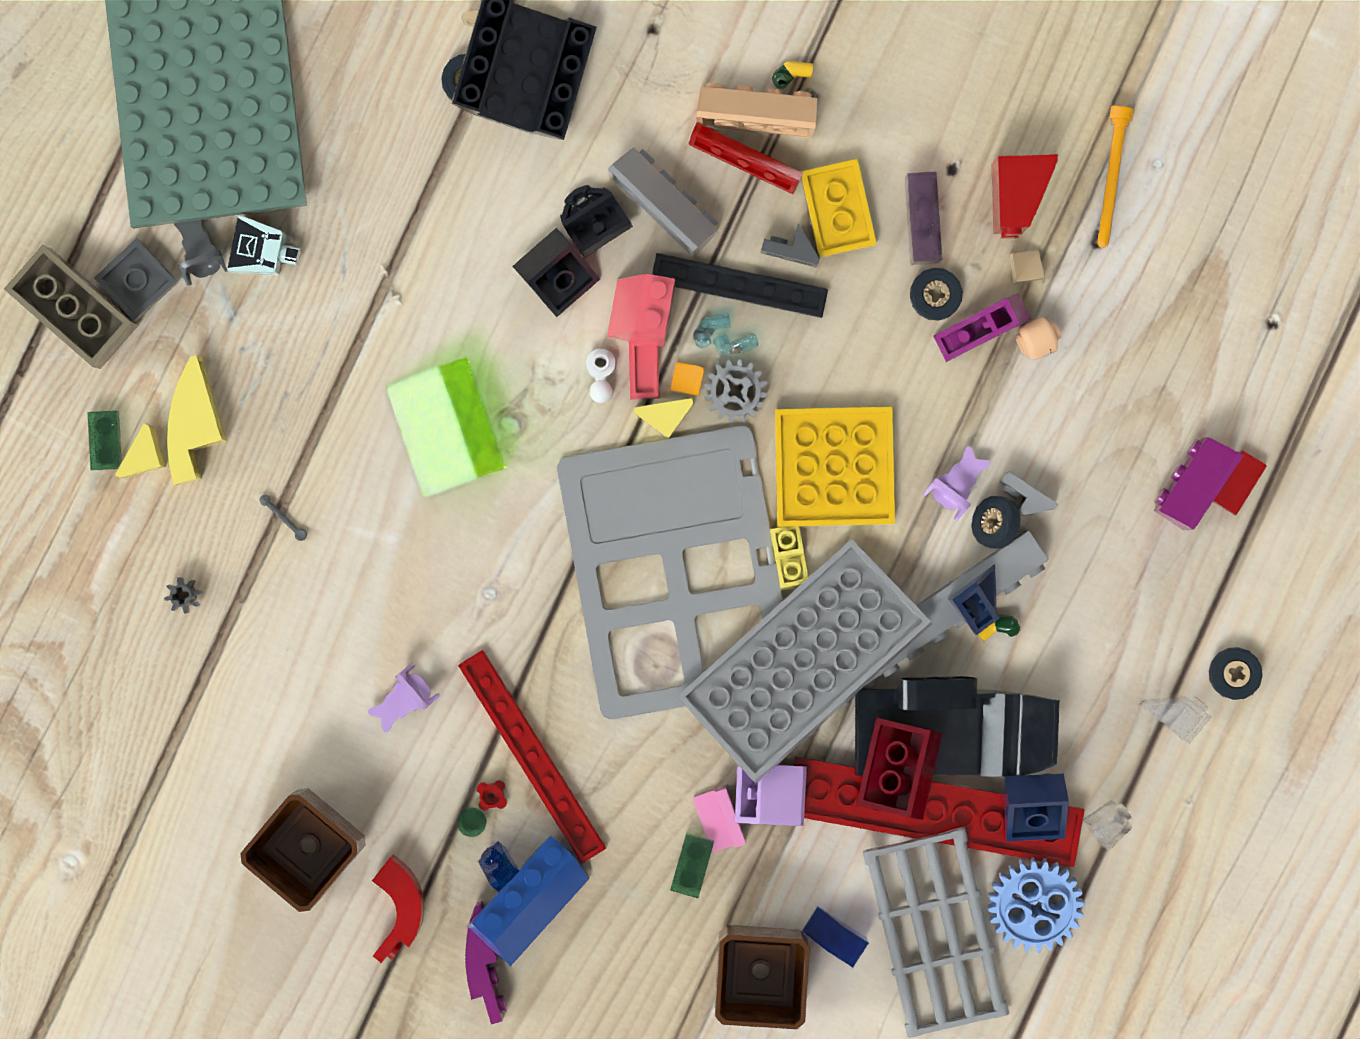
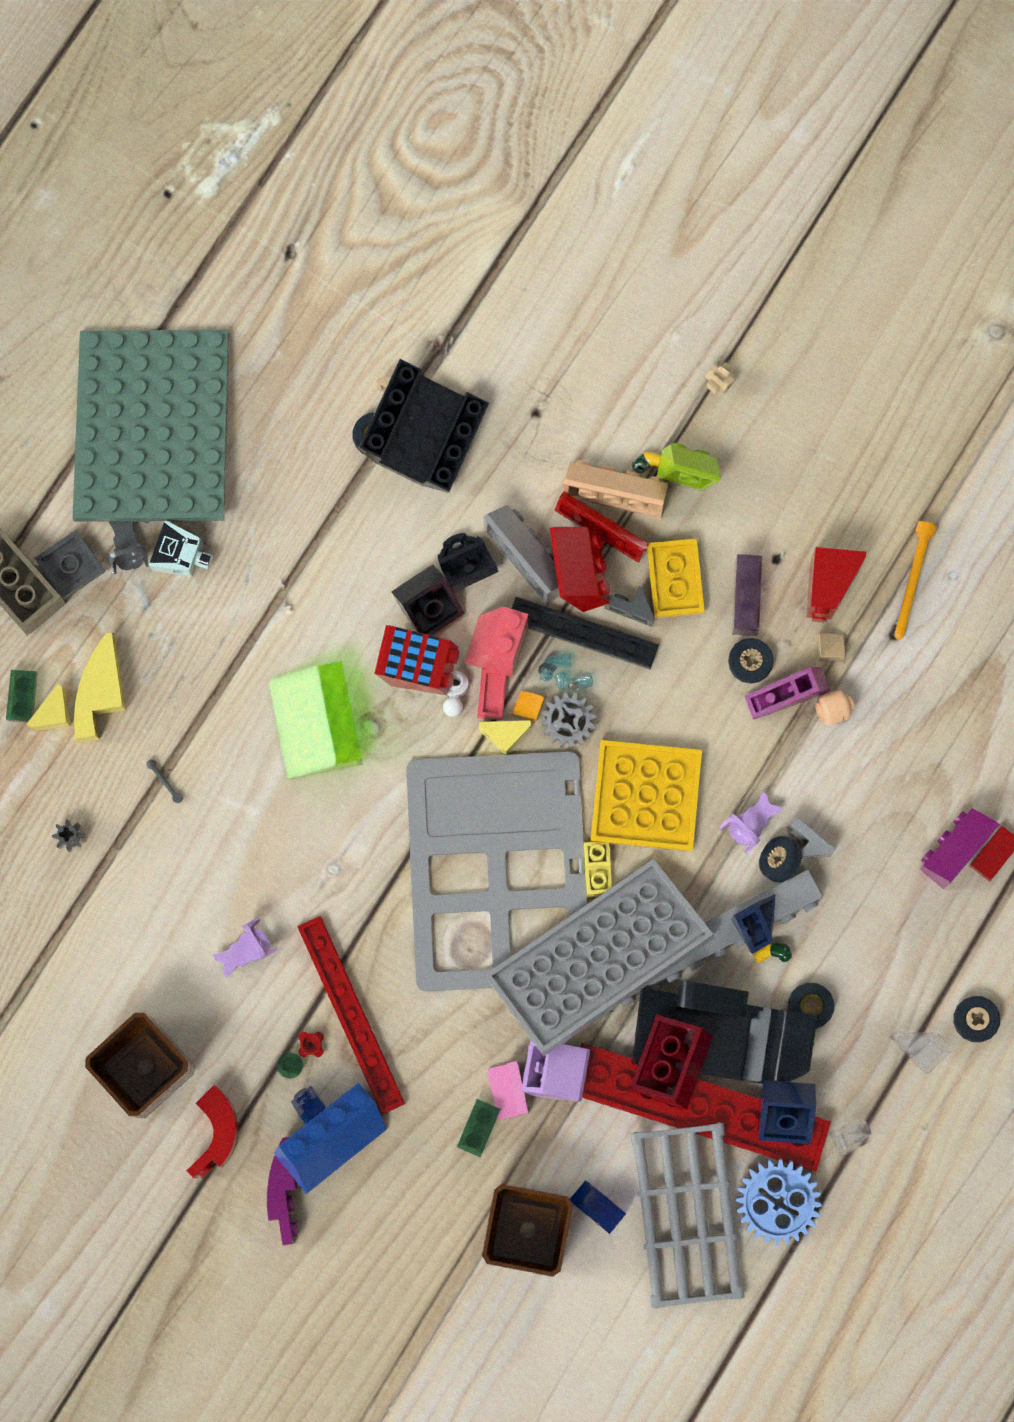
camera: 10 degrees right, 10 degrees down
(553, 345) = (416, 661): none -> red slope
(727, 211) = (580, 567): none -> red slope
(839, 75) = (688, 467): none -> lime slope
(1055, 668) = (818, 994): none -> black bush

